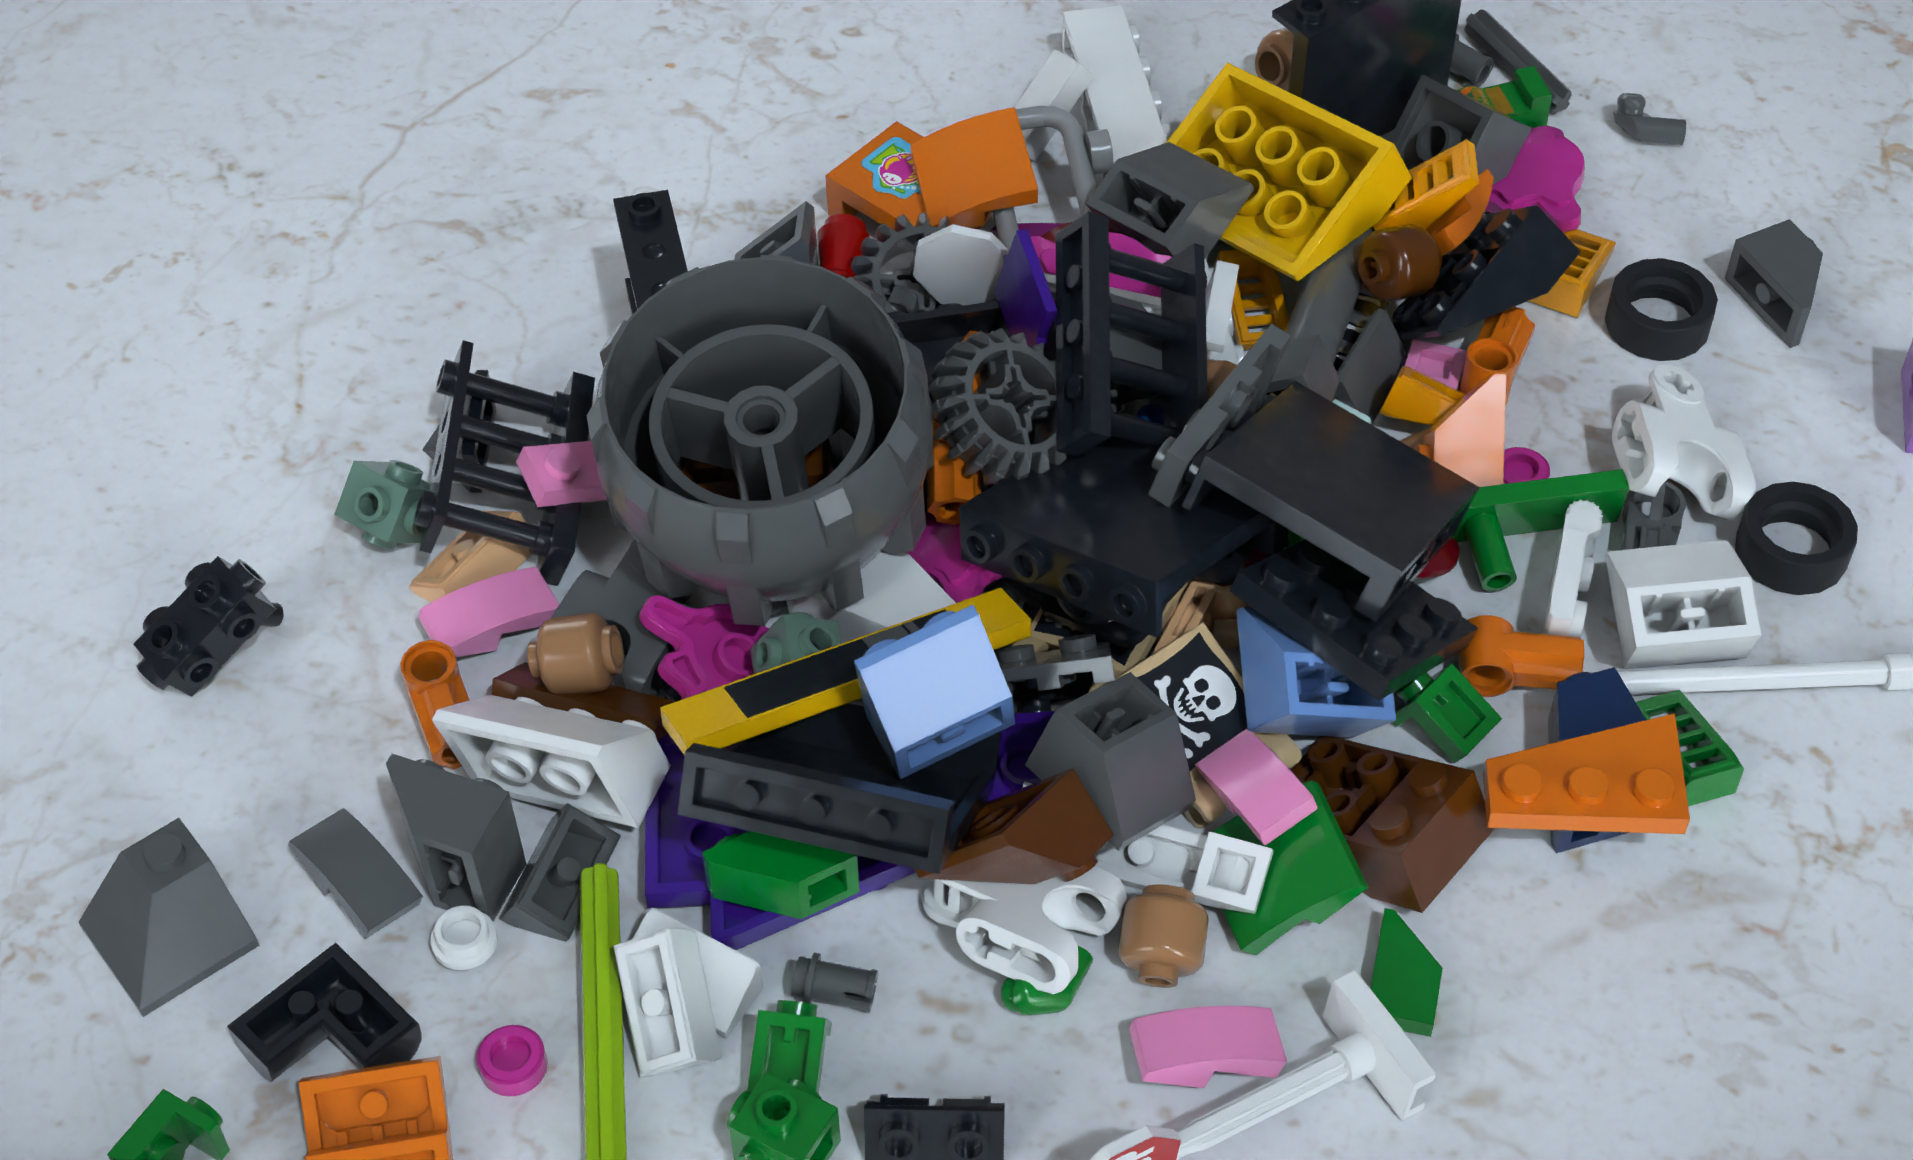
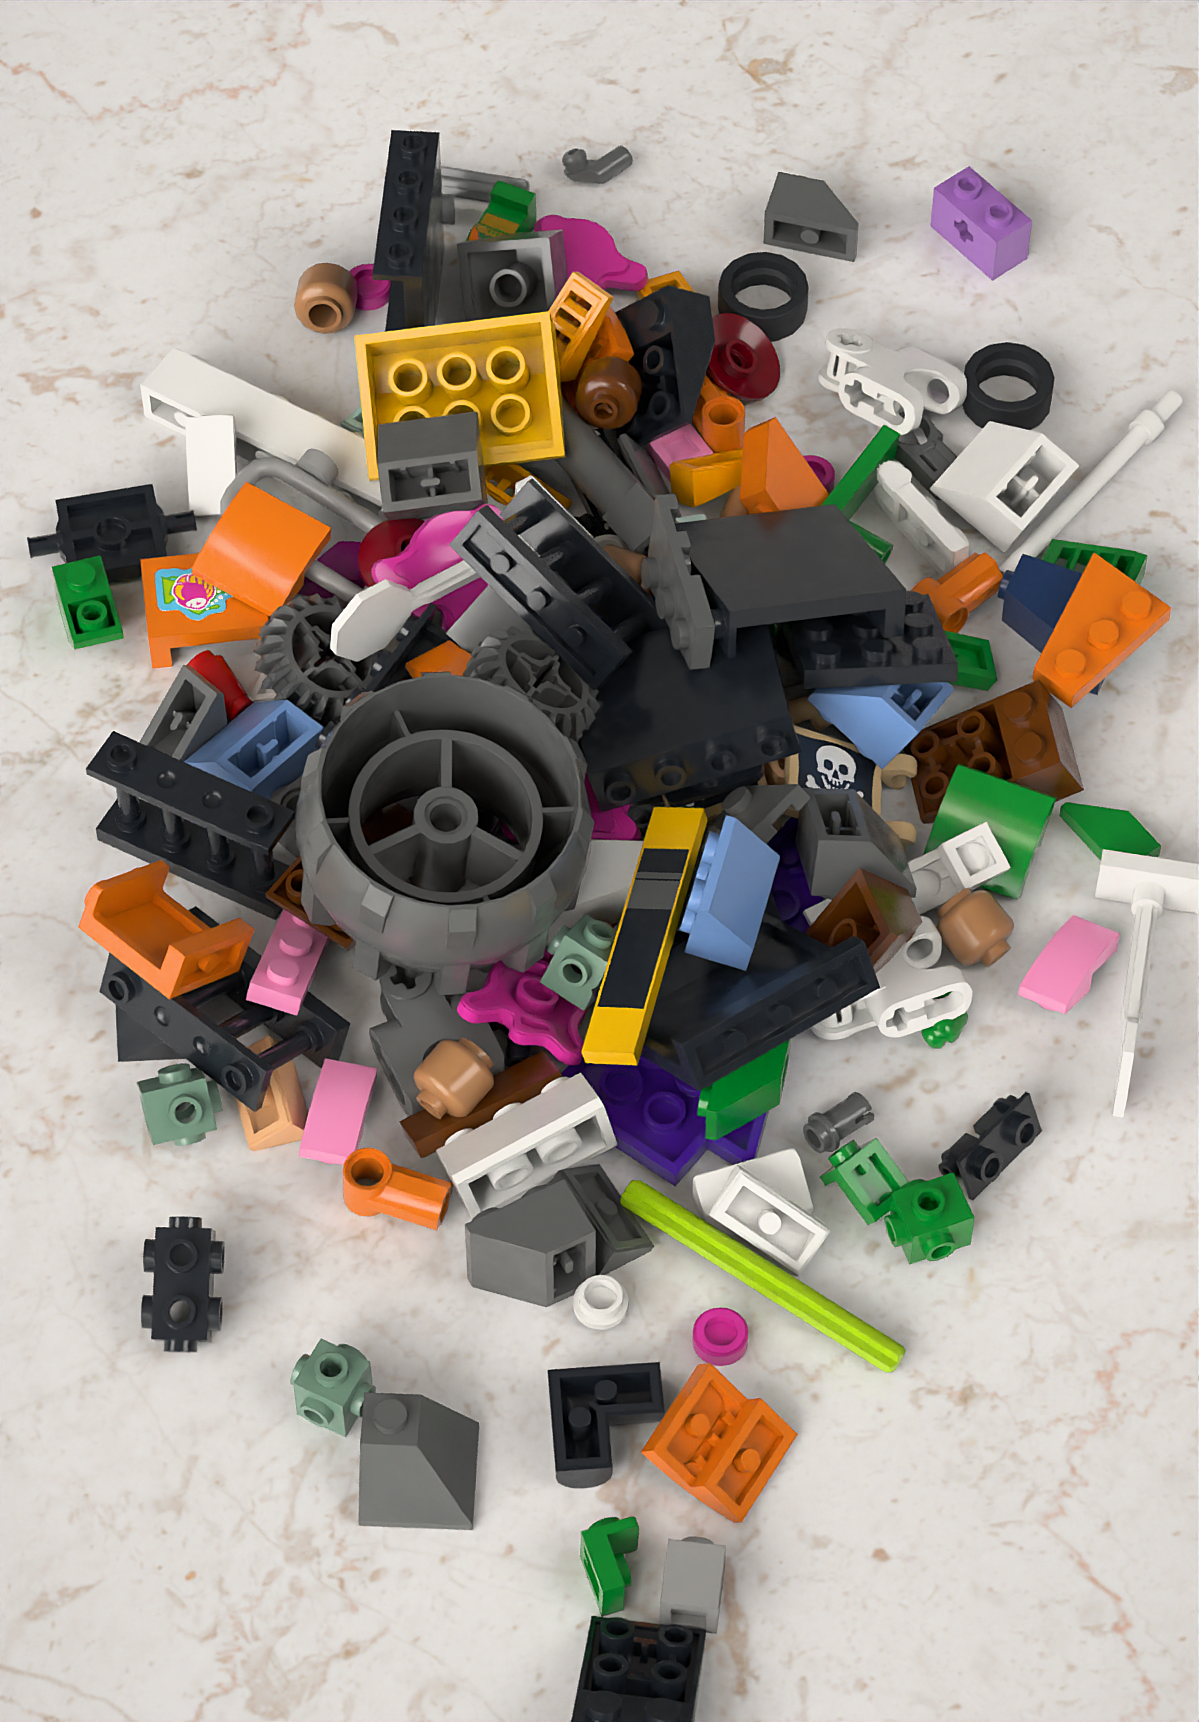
camera: 50 degrees left, 5 degrees up
(193, 790) = (332, 1386): none -> sand green brick
(357, 871) = (480, 1324): dark grey slope -> none
(518, 358) = (160, 936): none -> orange panel
(824, 125) = (86, 603): none -> green slope
(911, 92) = (113, 524): none -> black plate
(1025, 292) = (453, 606): dark purple piece -> none
(1256, 786) = (931, 792): bright pink slope -> none
(1592, 332) = (743, 358): none -> dark red dish

